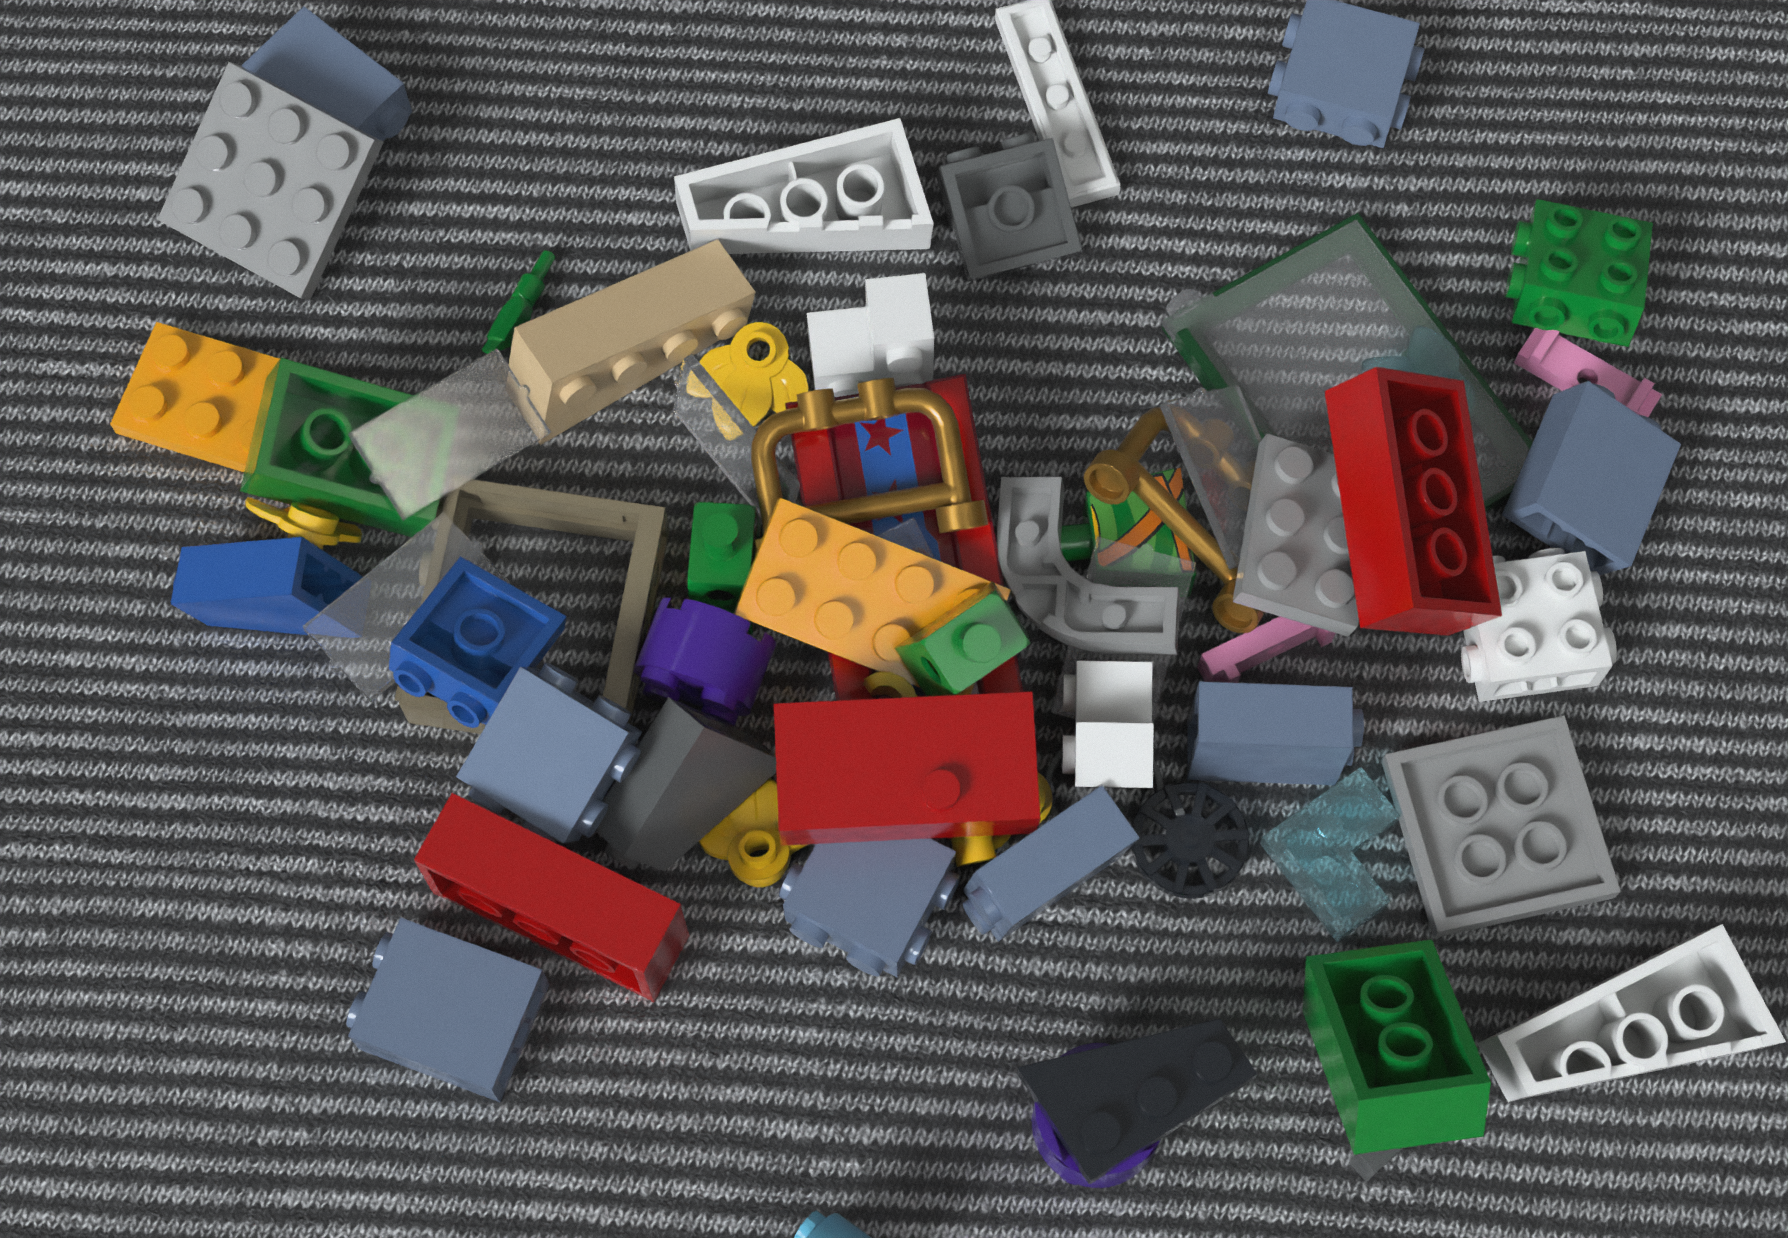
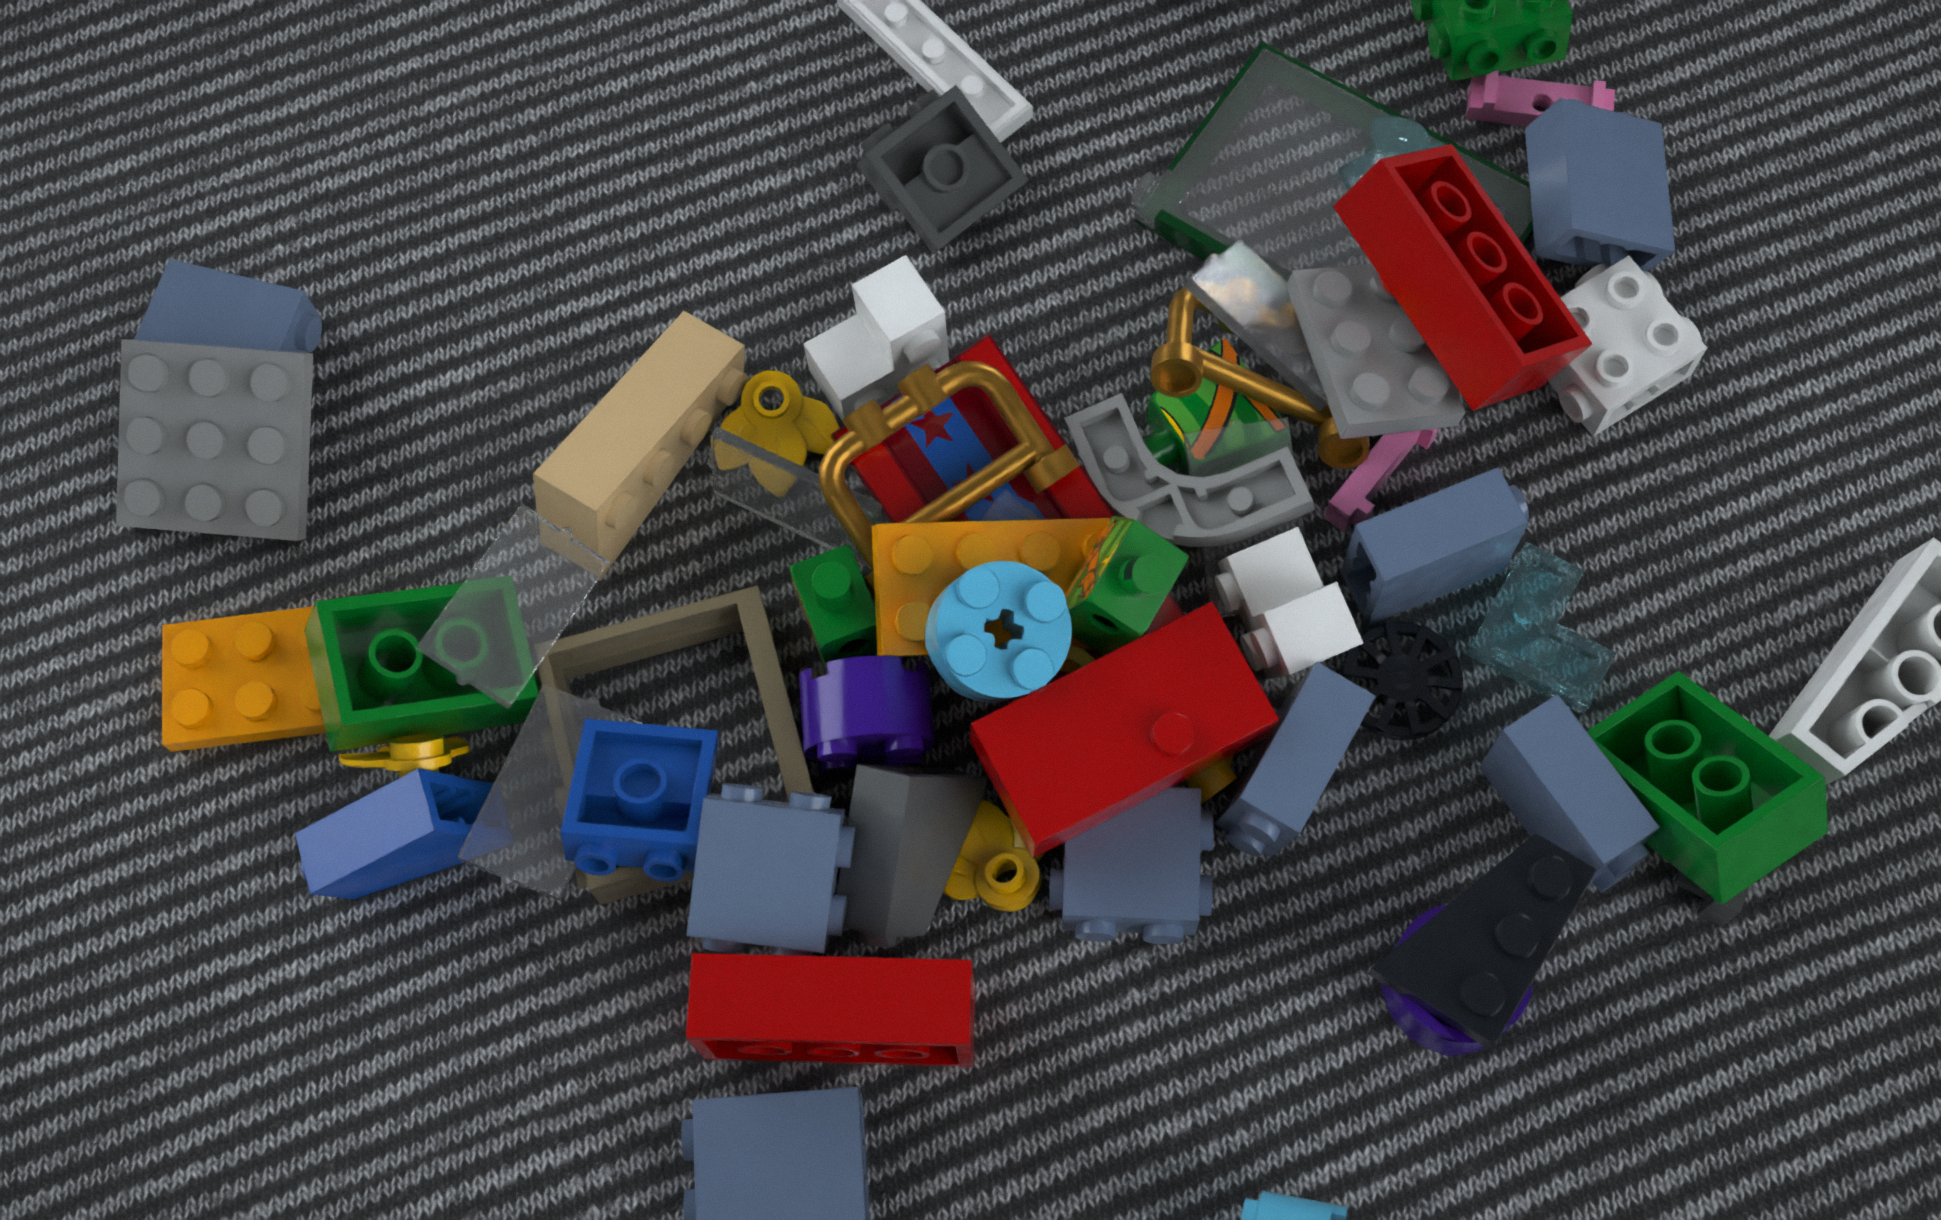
camera: 20 degrees left, 0 degrees up
(519, 307) = (518, 463): green hand -> none
(811, 197) = (753, 234): white wedge -> none
(829, 600) = (1029, 609): none -> medium azure brick
(1275, 1003) = (1569, 792): none -> sand blue brick
(1500, 826) = (1676, 541): light grey plate -> none

